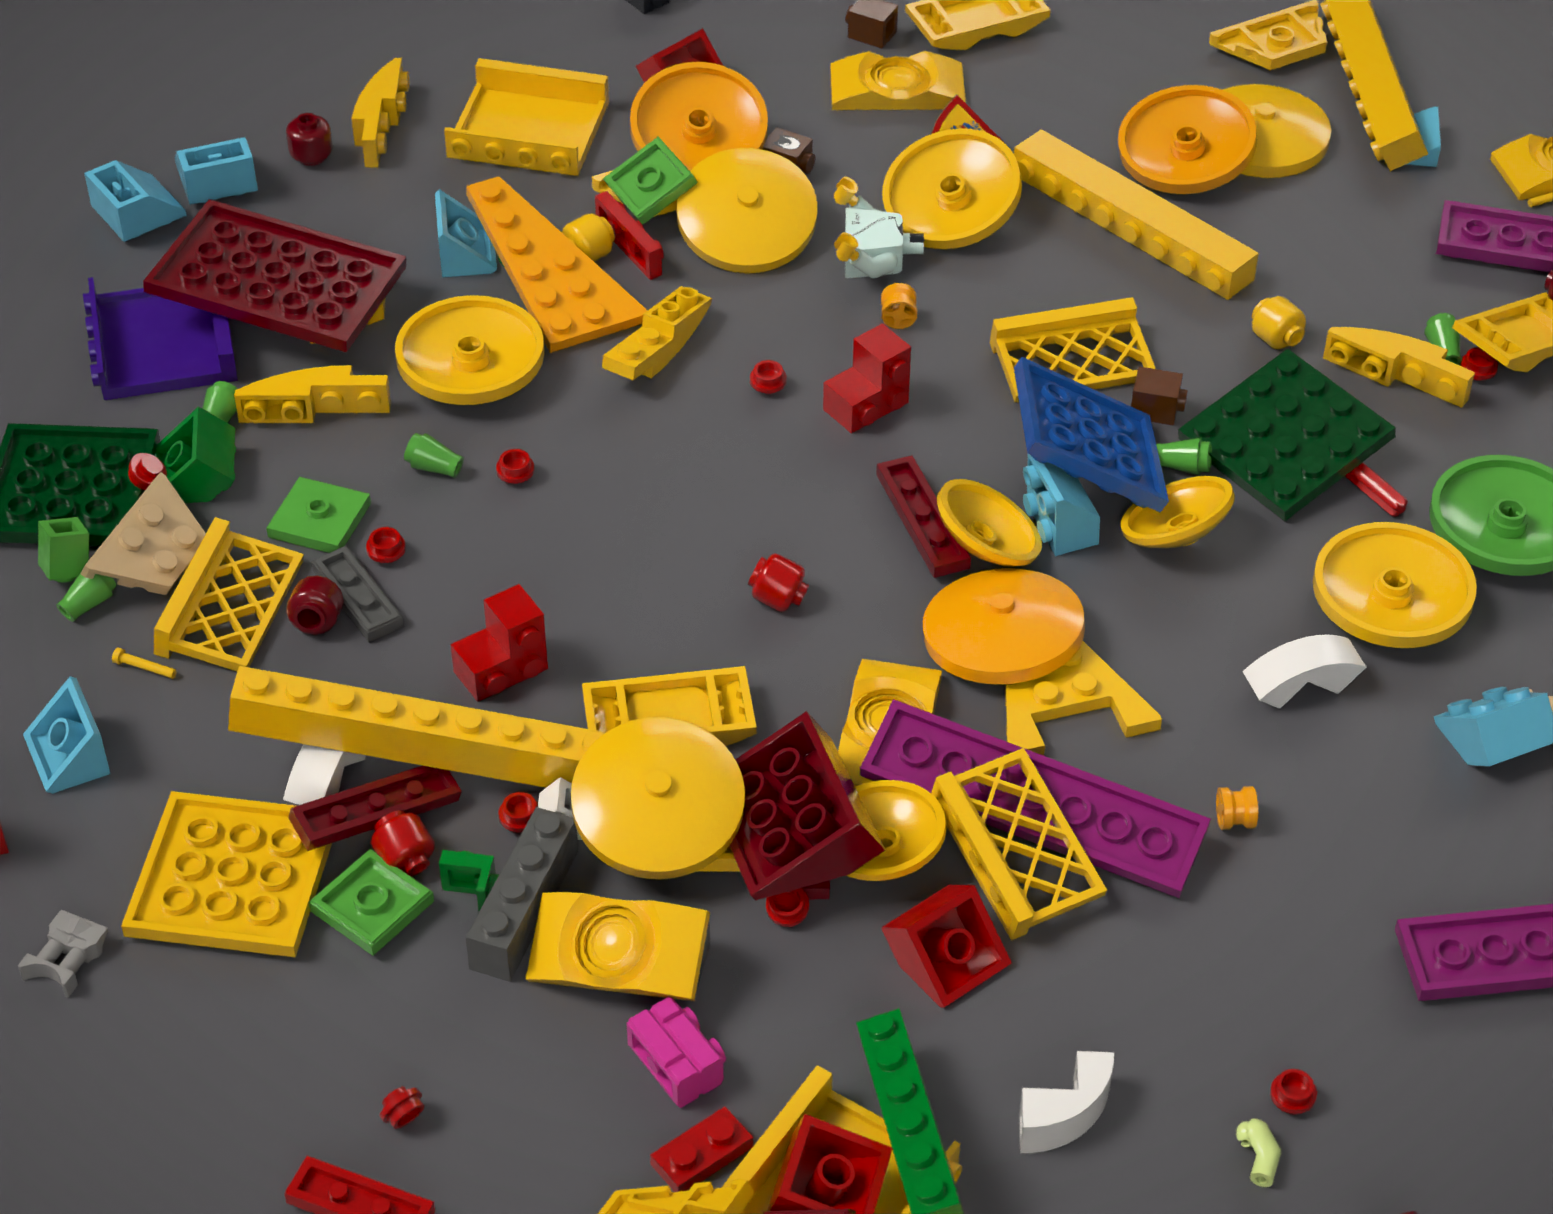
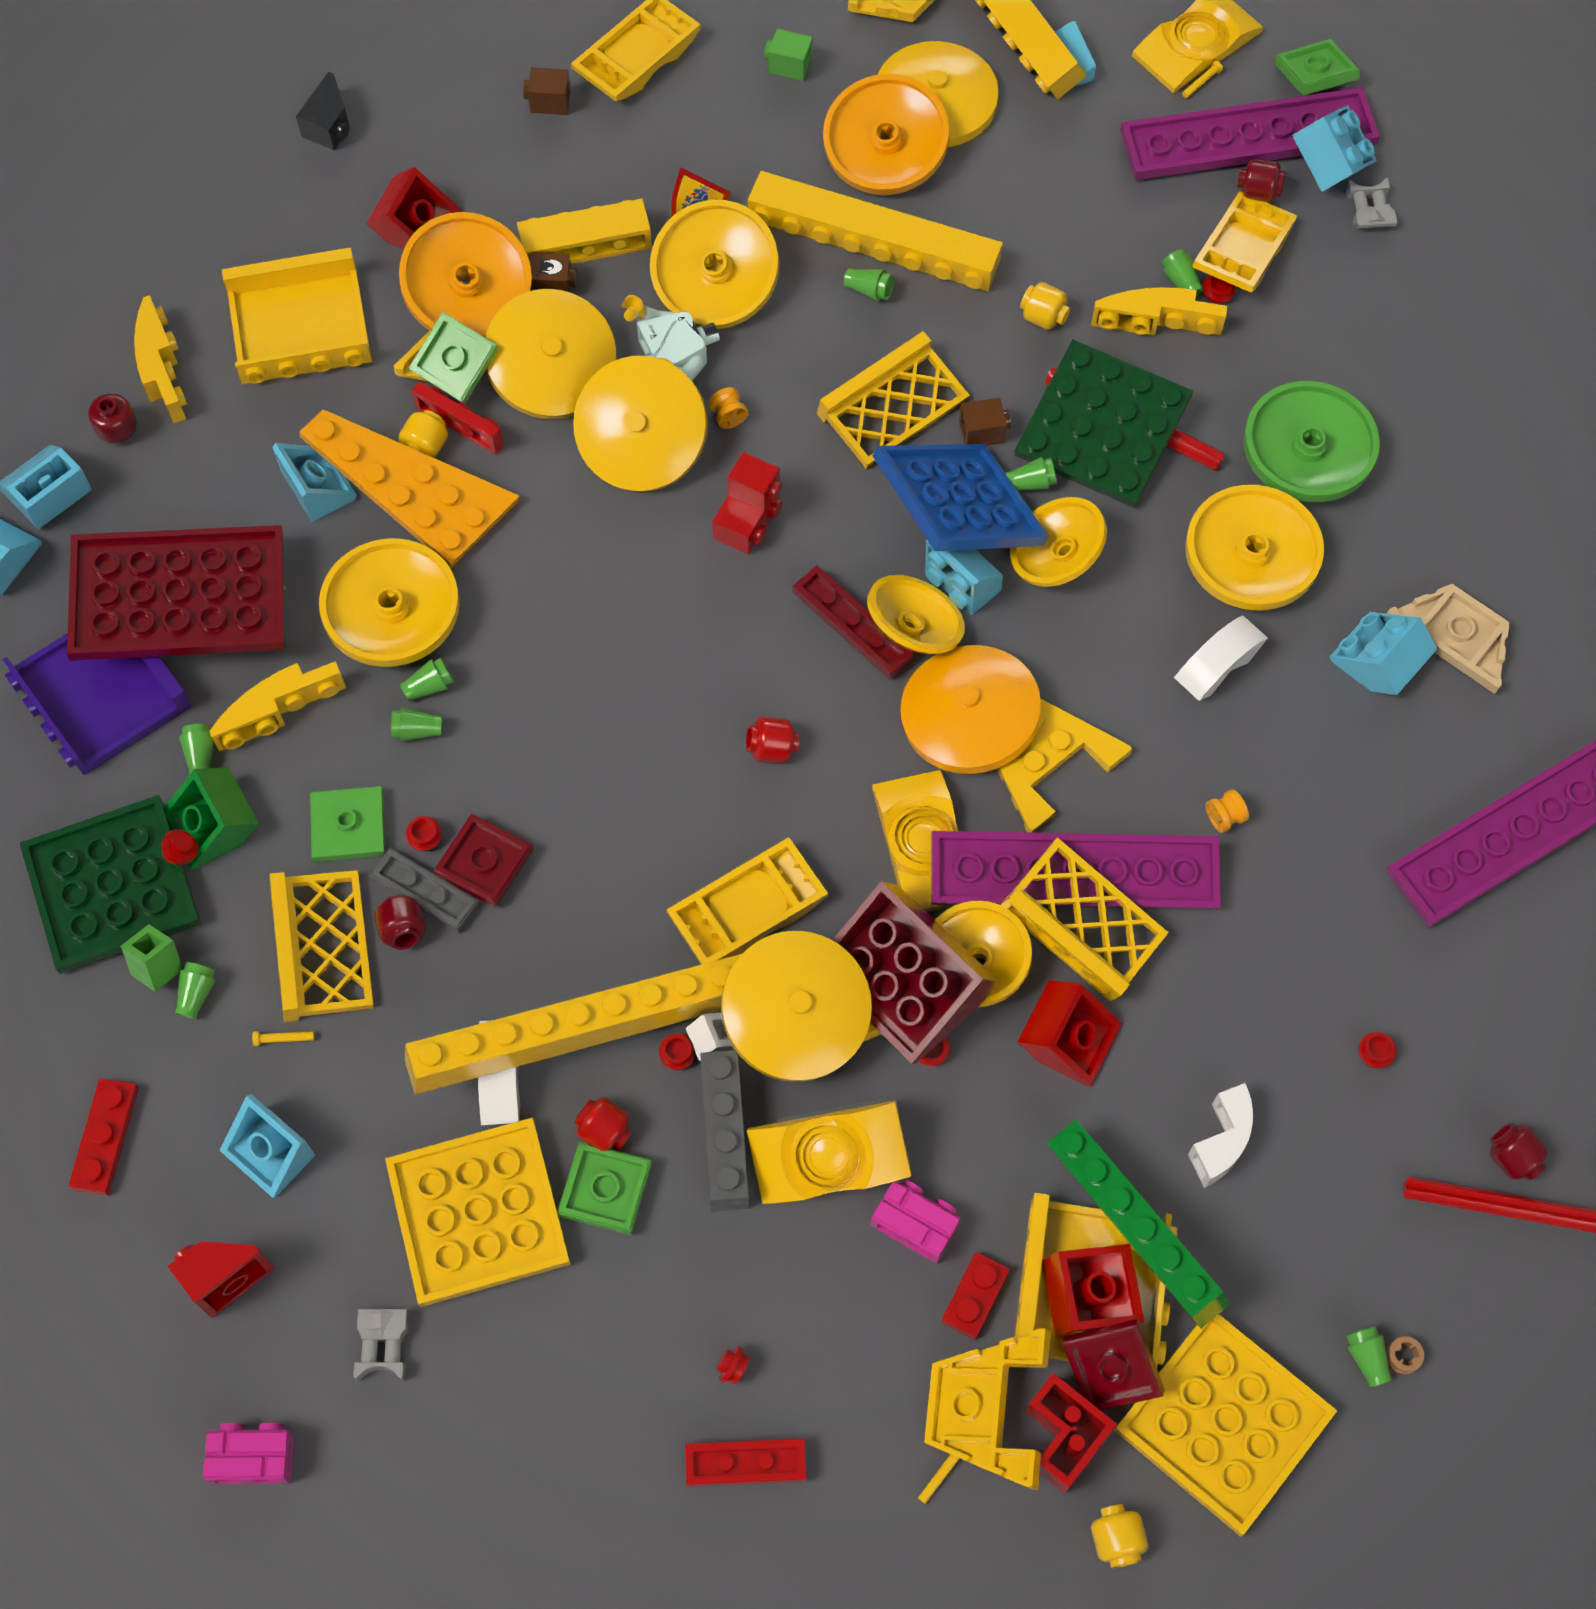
camera: 25 degrees left, 20 degrees up
(150, 542) = (225, 917): tan wing -> none
(361, 807) = (561, 1103): dark red plate -> none
(429, 586) = (483, 860): none -> dark red plate
(468, 426) = (429, 679): none -> bright green cone
(468, 873) = (670, 1127): green bracket -> none
(508, 647) = (587, 900): red brick -> none
(515, 466) = (489, 707): red plate -> none
(661, 337) = (541, 519): yellow slope -> none
(768, 377) = (654, 526): red plate -> none
(799, 284) = (640, 423): none -> yellow dish
(845, 134) = (589, 232): none -> yellow brick
(895, 82) = (602, 153): yellow slope -> none
(1106, 253) = (870, 282): none -> bright green cone
(1127, 57) = (789, 54): none -> bright green brick
(1268, 1152) = (1380, 1108): yellowish green arm -> none

